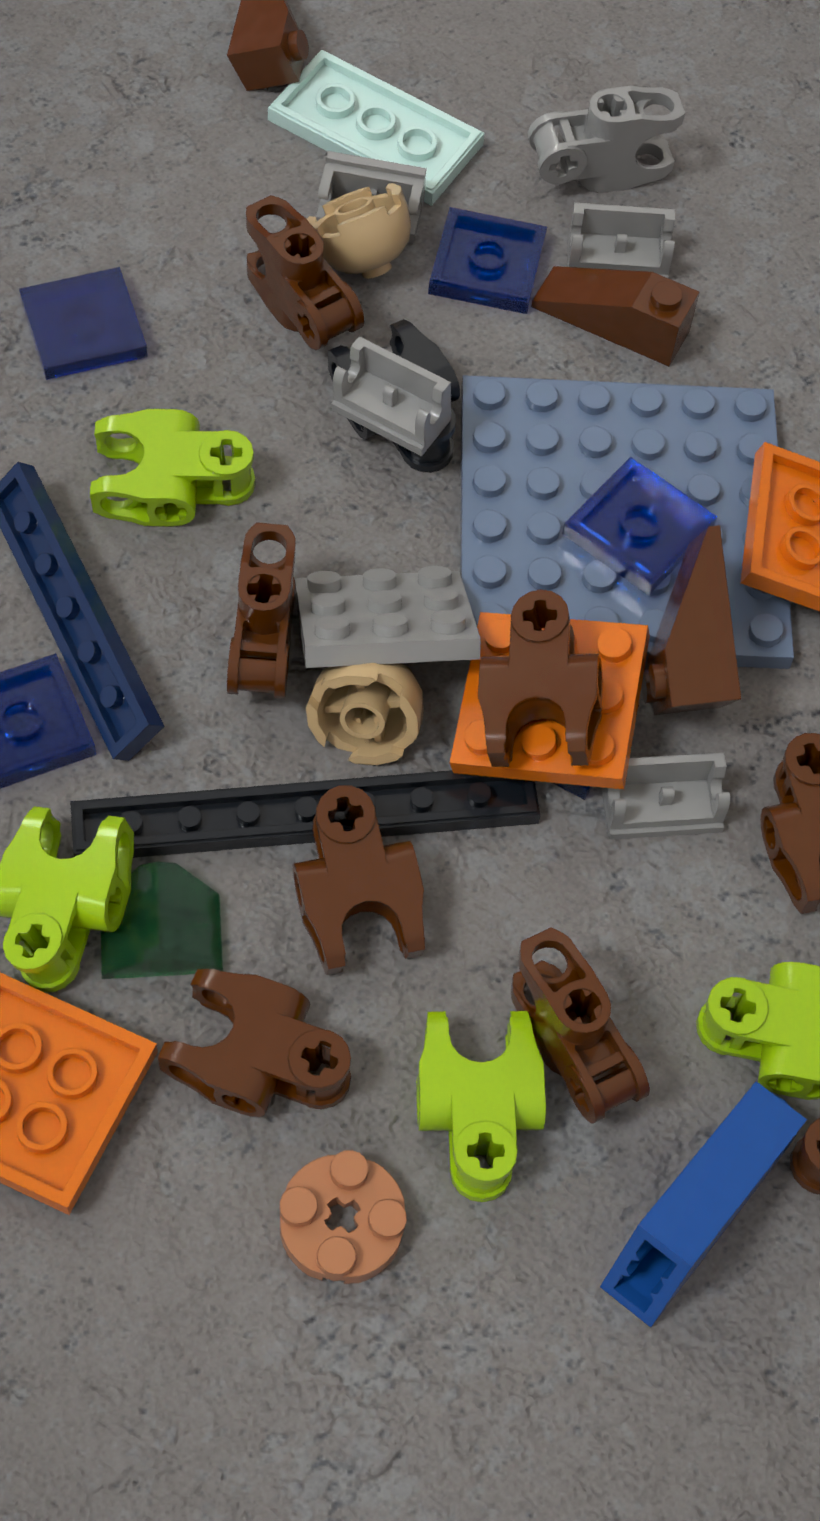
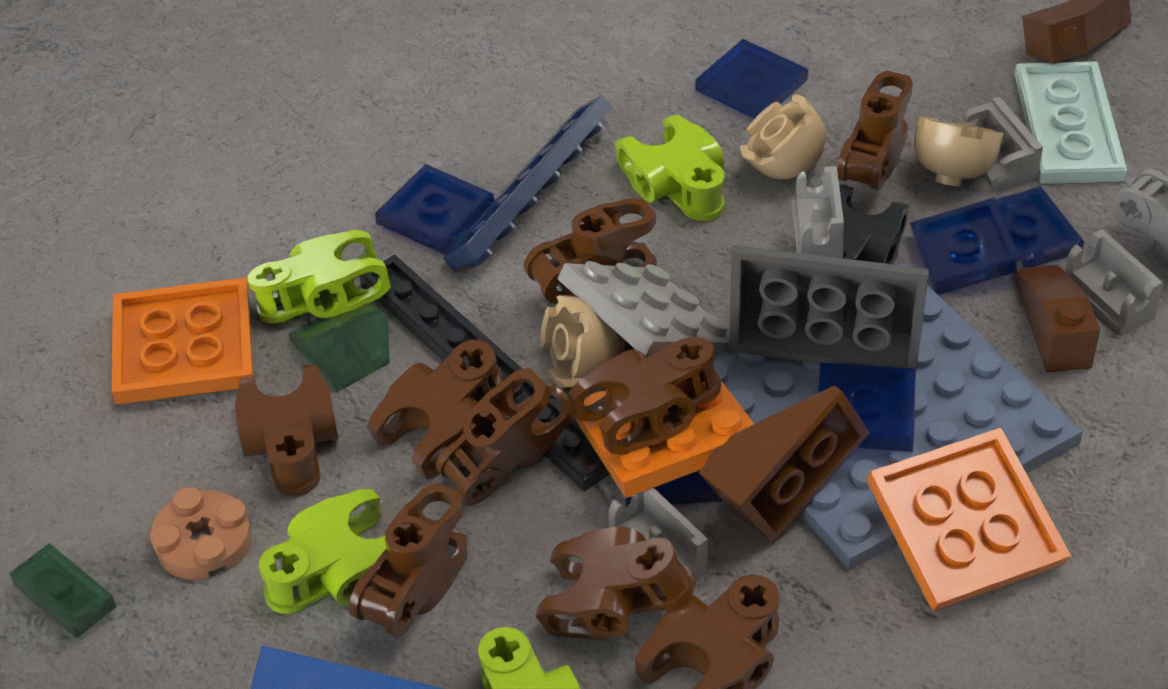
camera: 65 degrees right, 15 degrees down
(228, 351) = (785, 139): none -> tan cylinder
(331, 1405) = (63, 590): none -> clear green plate
(479, 827) = (502, 436): none -> reddish brown piece
(483, 314) = (965, 246): none -> clear blue tile
(538, 478) = (825, 308): none -> dark grey slope
(716, 858) = (617, 579): none -> reddish brown piece

